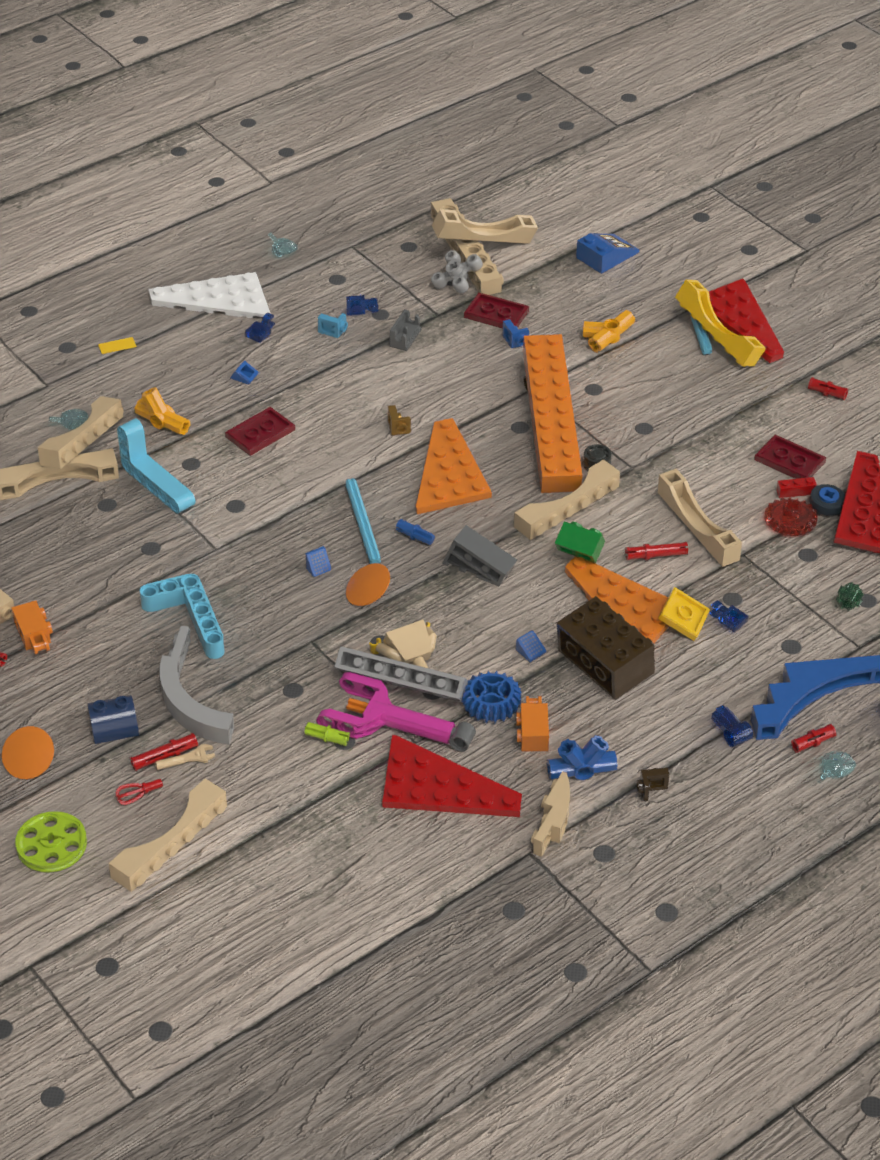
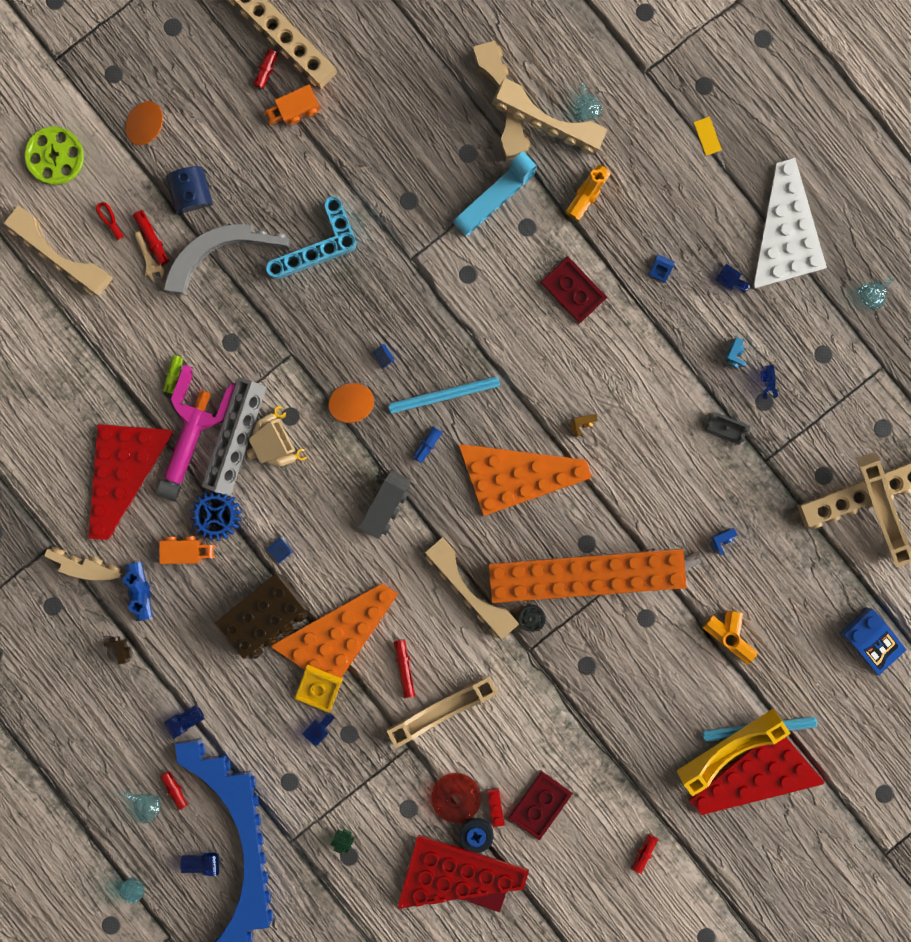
camera: 90 degrees right, 45 degrees up
(456, 271) = (820, 486): light grey gear -> none
(495, 310) = (767, 521): dark red tile -> none
(580, 541) = (399, 597): green brick -> none

